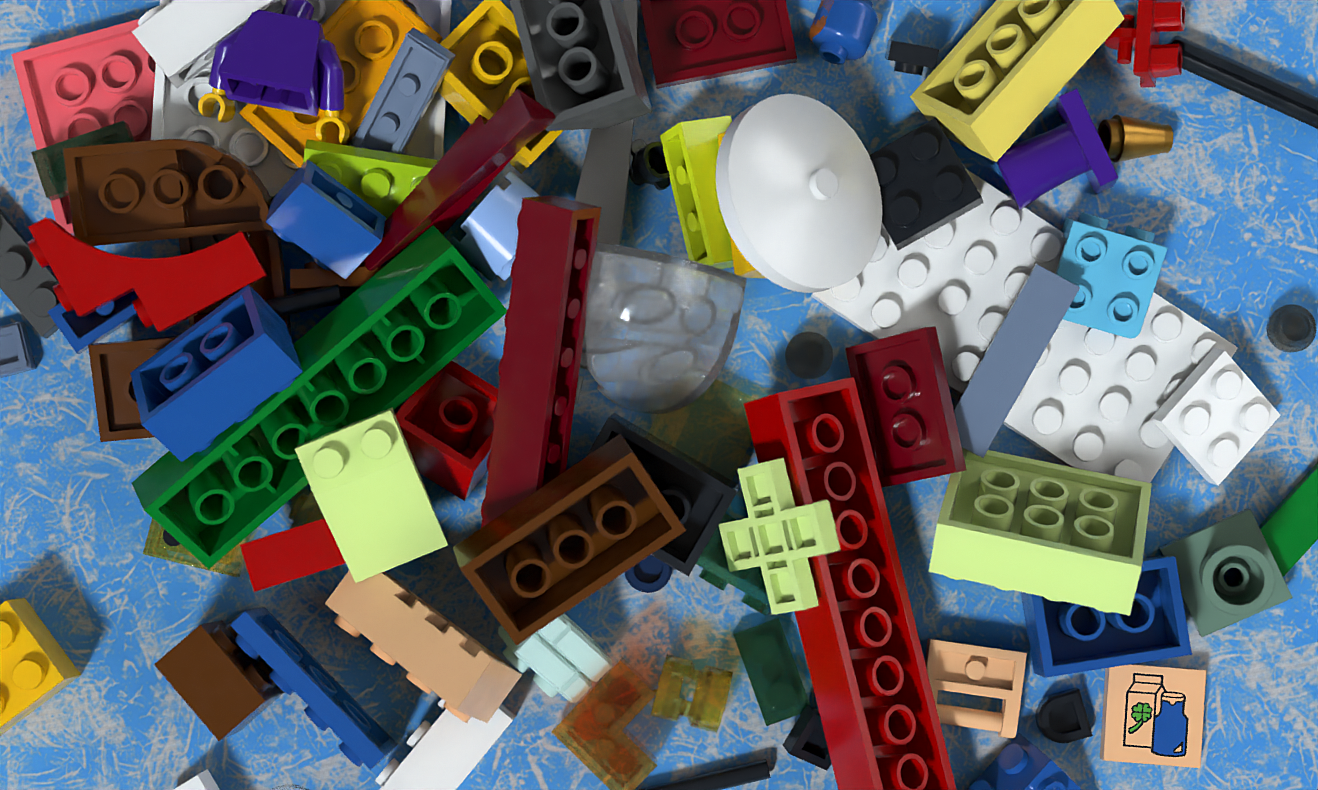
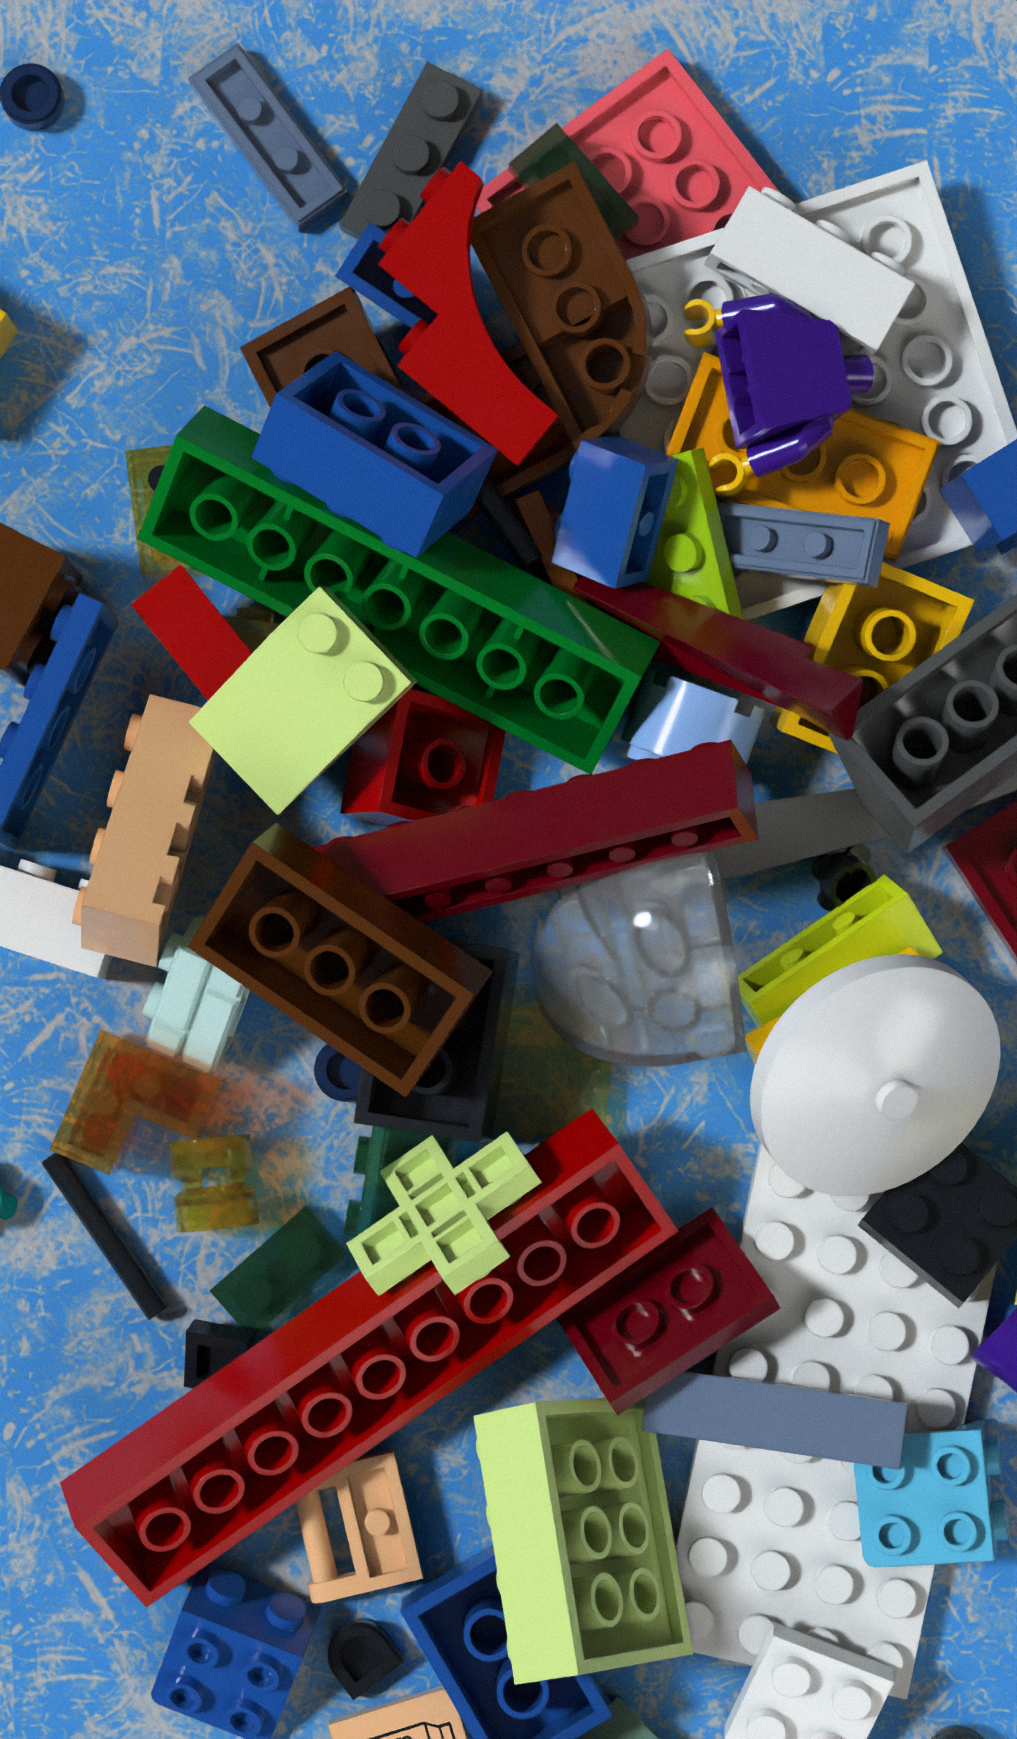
camera: 65 degrees right, 0 degrees up
(809, 355) = (685, 1165): clear smoke plate -> none

